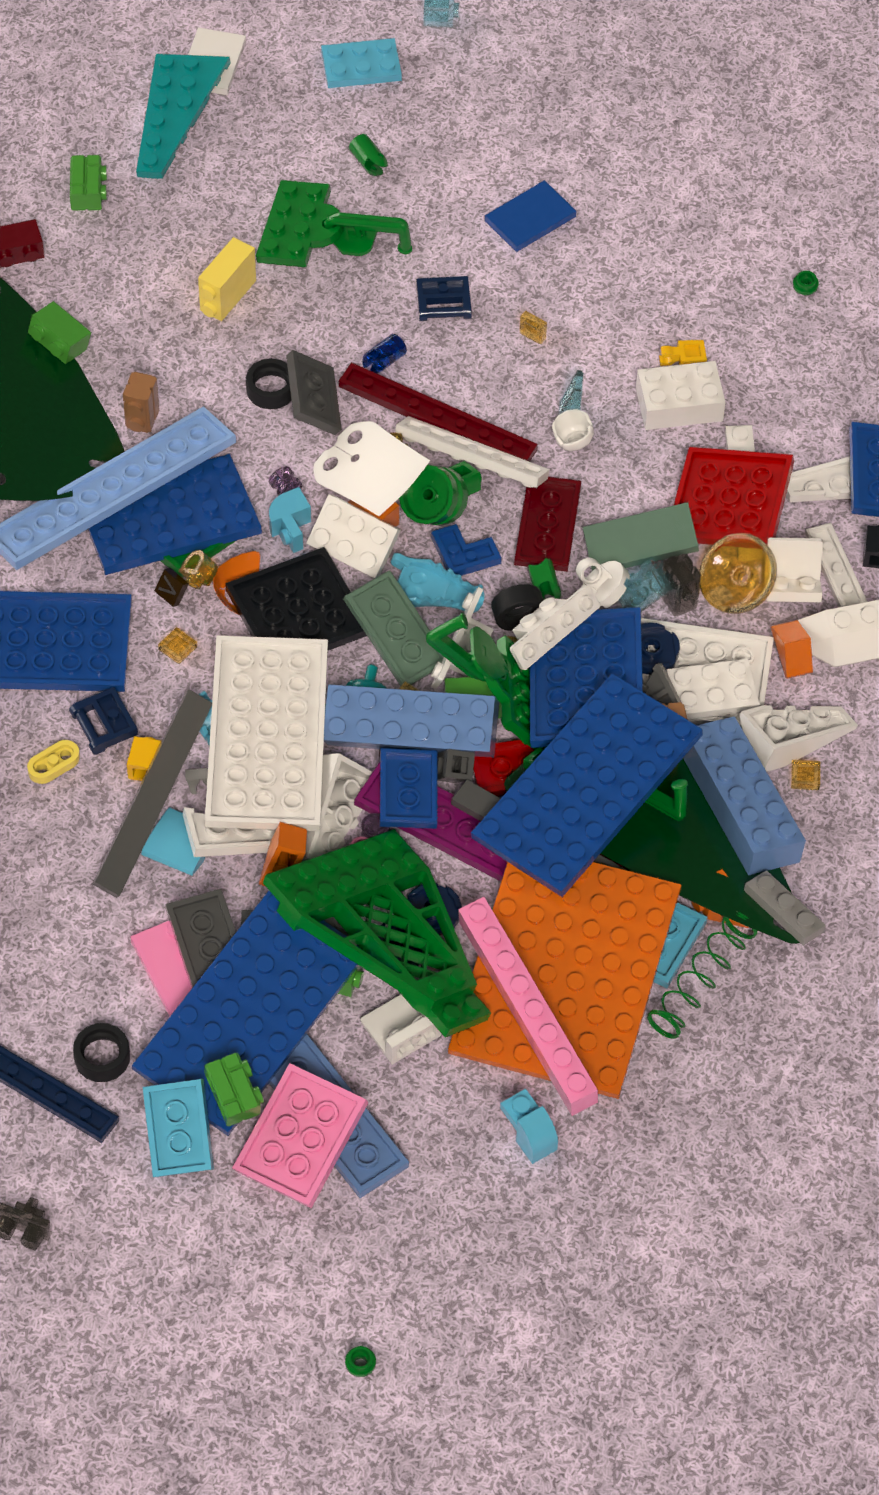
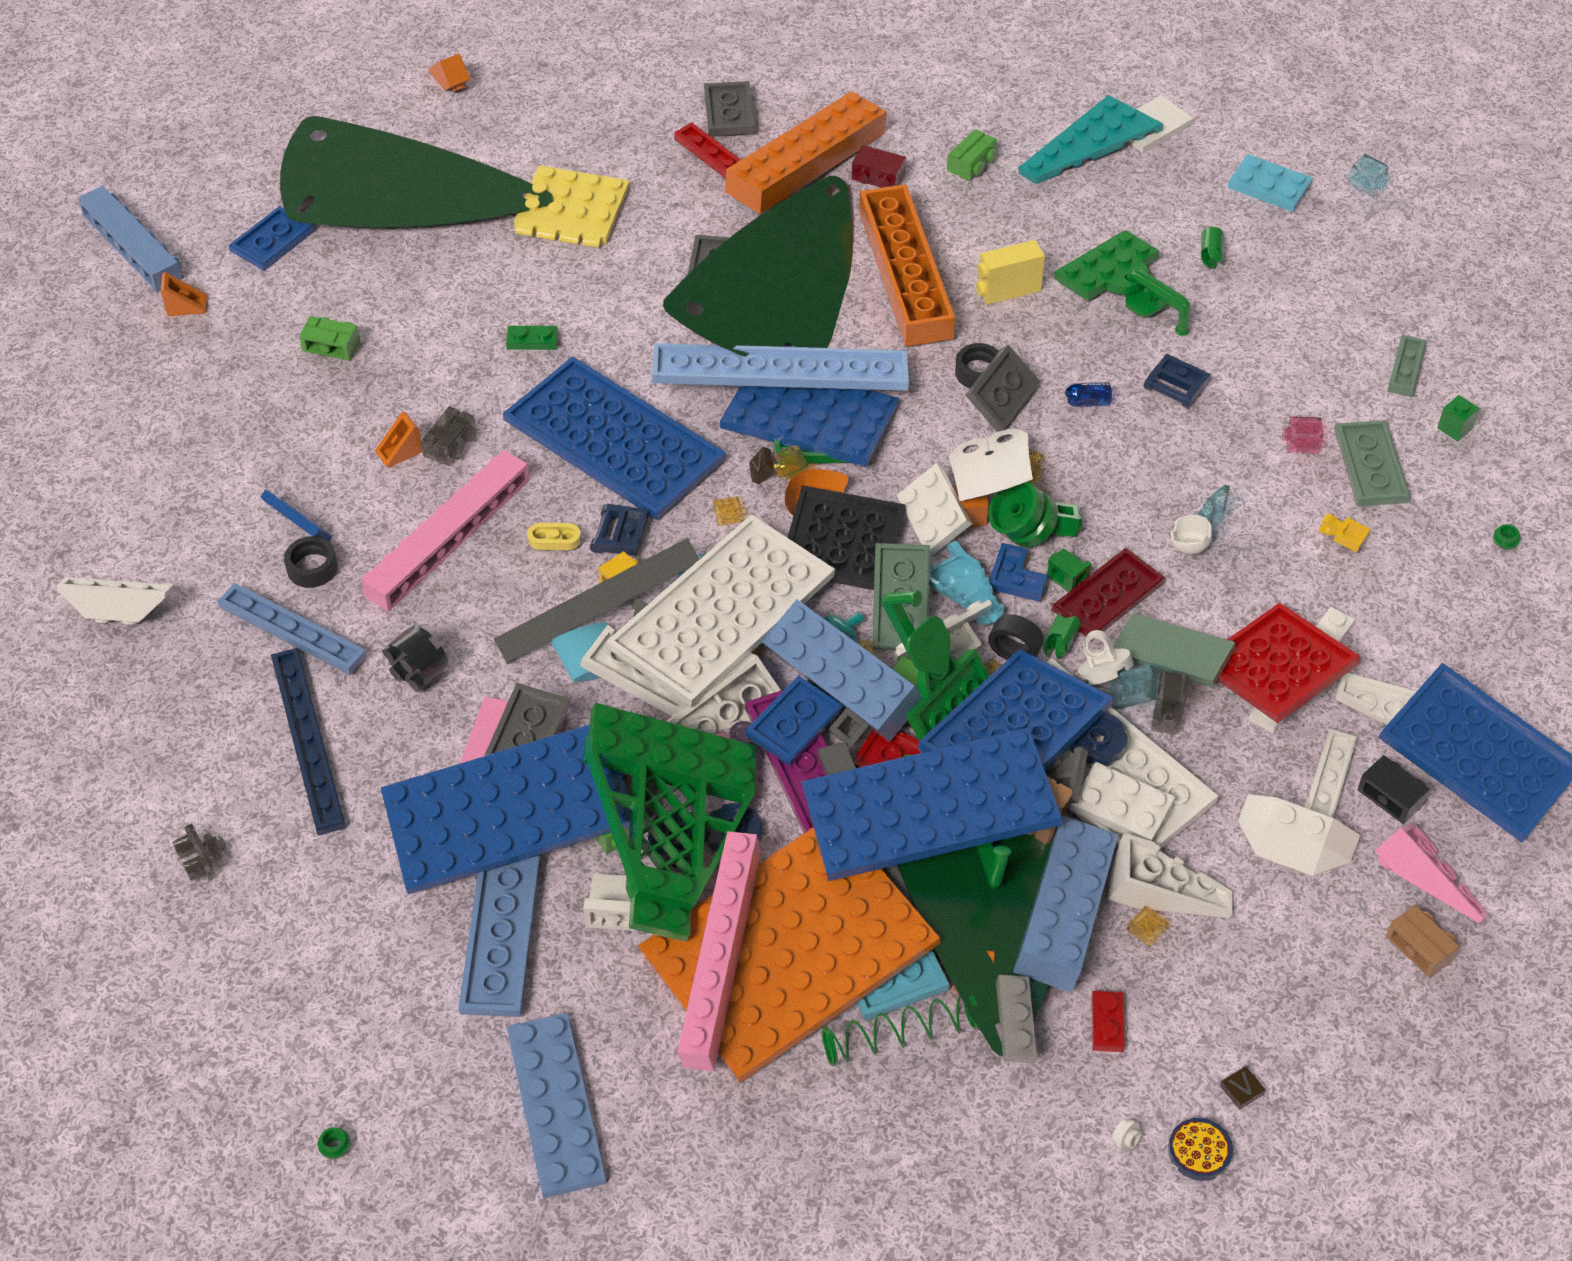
camera: 40 degrees right, 5 degrees down
(48, 941) = (415, 658): none -> black brick
(59, 332) = (849, 242): bright green brick -> none
(106, 1072) = (372, 750): black tyre -> none
(129, 324) = (906, 265): none -> orange brick
(141, 402) = (860, 321): medium nougat brick -> none
(178, 1128) = (369, 859): medium azure plate -> none
(233, 1089) = (430, 854): bright green brick -> none
(284, 480) = (920, 442): clear purple wheel -> none
(285, 849) = (653, 700): orange slope -> none
(286, 515) = (899, 464): medium azure brick -> none
(300, 1135) = (454, 929): bright pink plate -> none
(434, 412) = (1092, 464): dark red plate -> none
(471, 451) = (1091, 503): white plate -> none
(498, 1212) = (556, 1106): none -> medium blue plate
(502, 522) = (1067, 569): none -> green brick
(530, 216) = (1308, 360): blue tile -> none
(533, 327) = (1231, 440): clear yellow tile -> none
(533, 1126) = (639, 1051): medium azure brick -> none
(550, 624) = (1022, 664): white bracket -> none
(585, 287) = (1303, 434): none -> clear pink brick
(610, 174) = (1406, 366): none -> sand green tile
(653, 280) = (1371, 463): none -> sand green tile
(680, 395) = (1310, 559): white brick -> none
(691, 199) = (1458, 418): none -> green brick
(728, 563) = (1229, 724): clear yellow dish -> none
(793, 648) = (1226, 816): orange slope -> none
(797, 569) = (1283, 751): white bracket -> none
(838, 866) = (1107, 1021): none -> red plate

